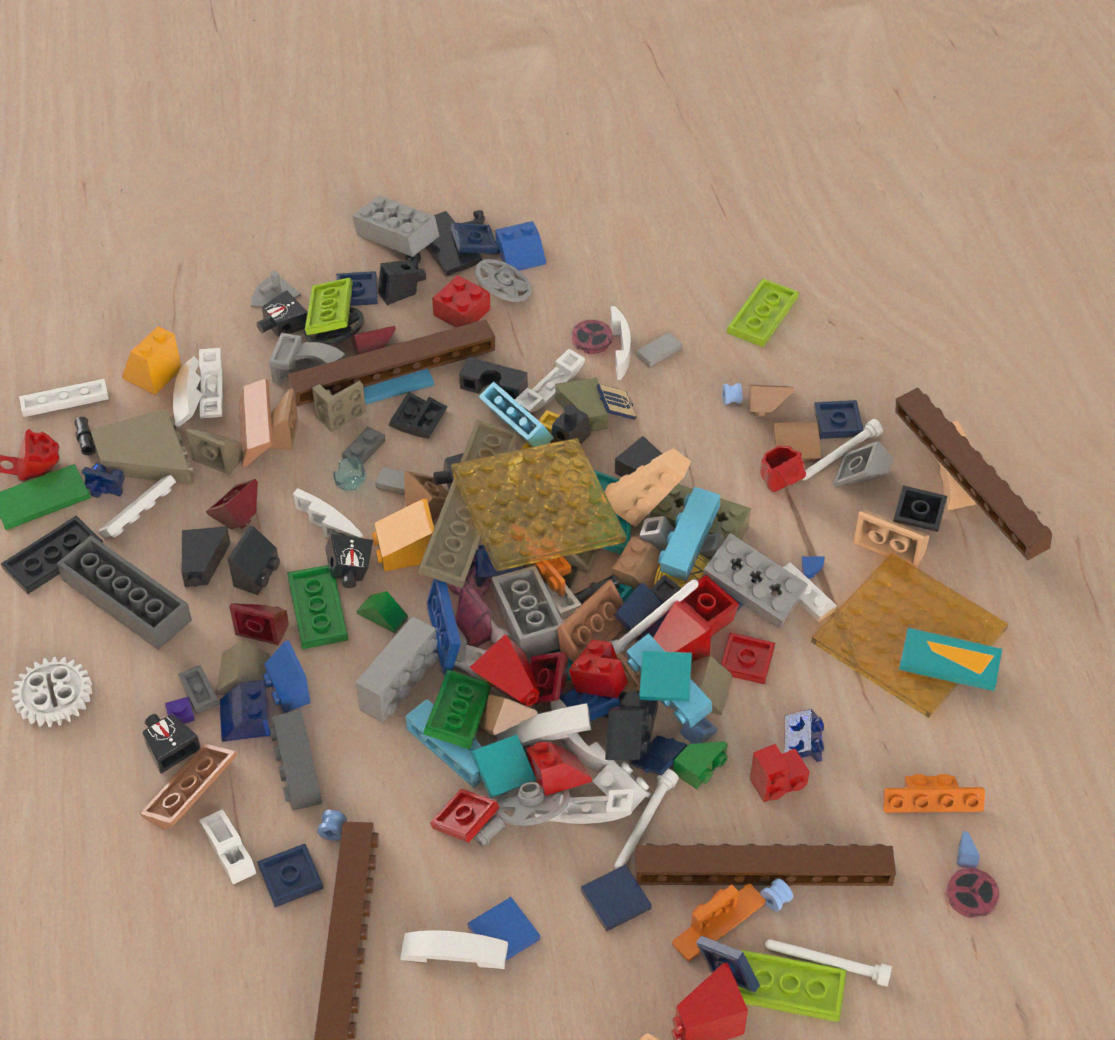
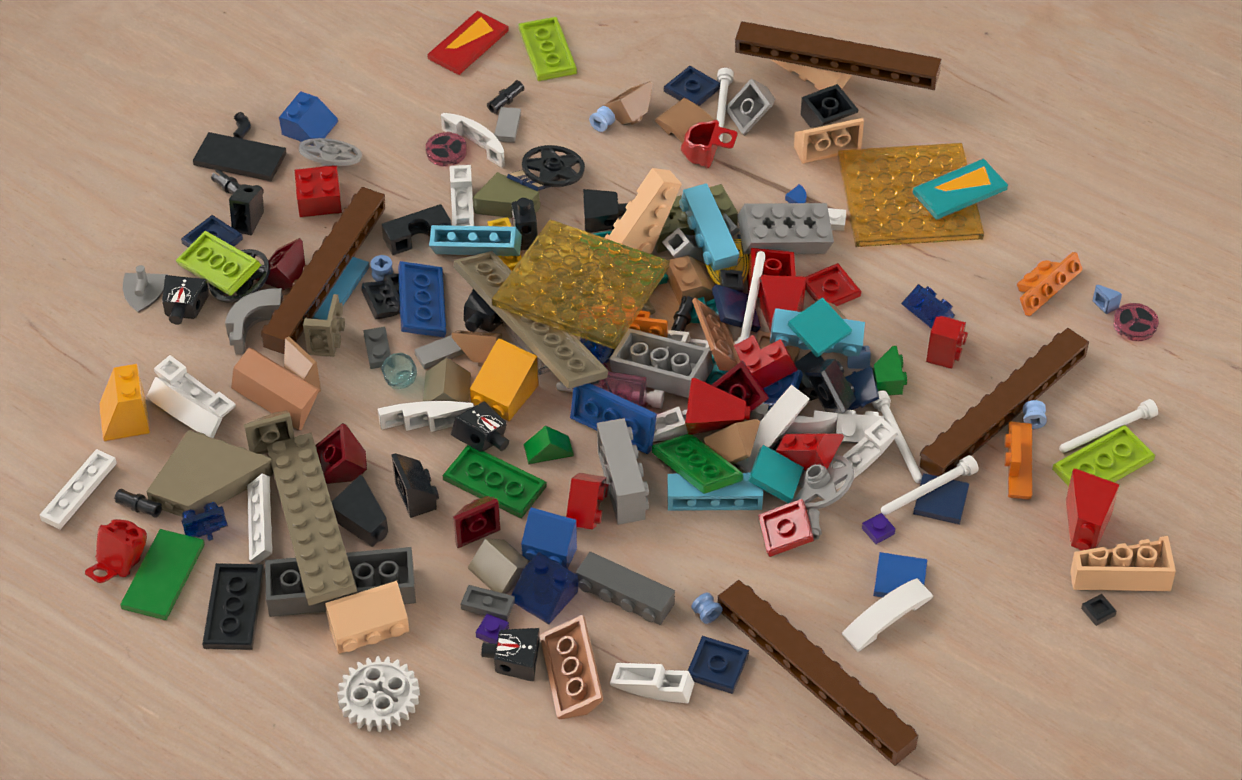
camera: 45 degrees left, 0 degrees up
(106, 631) = (367, 617): none -> light nougat slope
(153, 531) = (311, 519): none -> dark tan plate
(285, 351) = (232, 319): light grey tile -> none
(344, 668) = (585, 498): none -> red brick
(370, 509) = (447, 382): none -> dark tan slope
(395, 225) = (190, 167): light grey brick -> none
(432, 434) = (422, 299): none -> blue tile
(435, 389) = (381, 266): none -> medium blue wheel
(474, 238) = (261, 137): dark blue tile -> none
(537, 878) = (878, 528): none -> dark purple plate
(646, 403) = (553, 166): none -> black wheel
(660, 888) = (965, 467): none -> white piece
(683, 326) = (505, 96): none -> black pin
(708, 268) = (468, 42): none -> red tile
(718, 954) = (1058, 472): dark blue tile -> none

